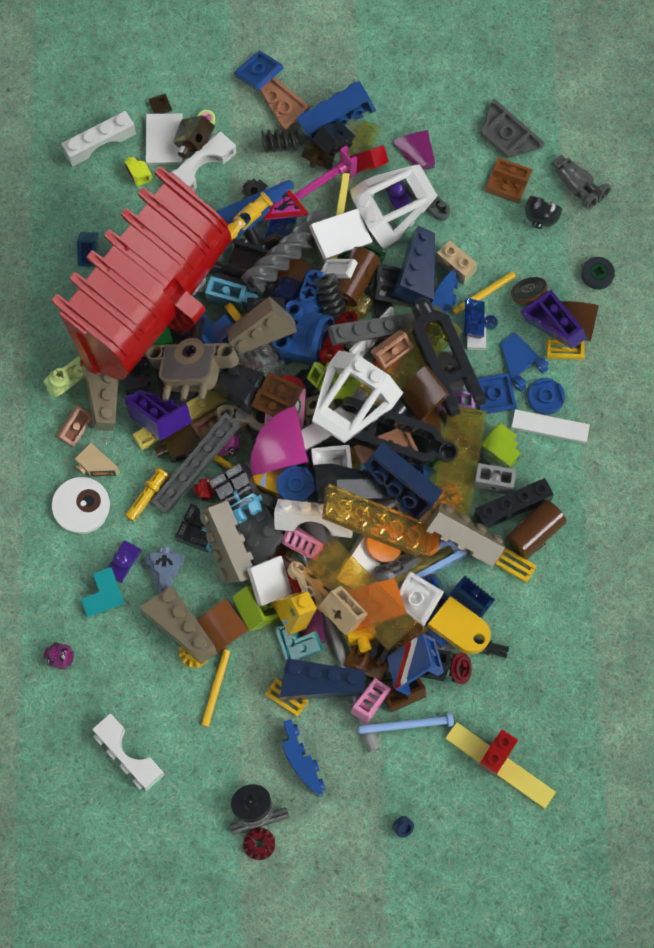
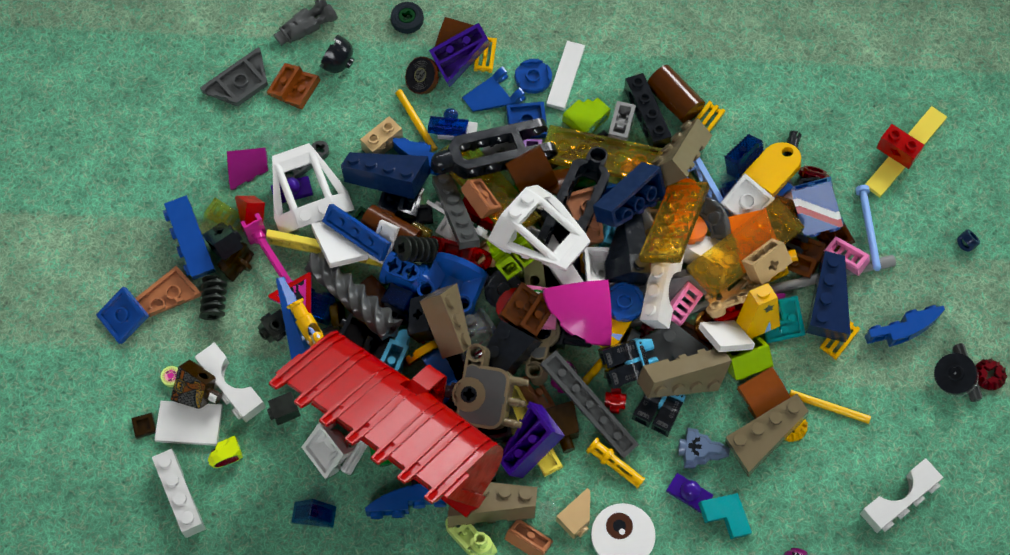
camera: 85 degrees left, 5 degrees down
(346, 244) = (356, 232): none -> blue tile

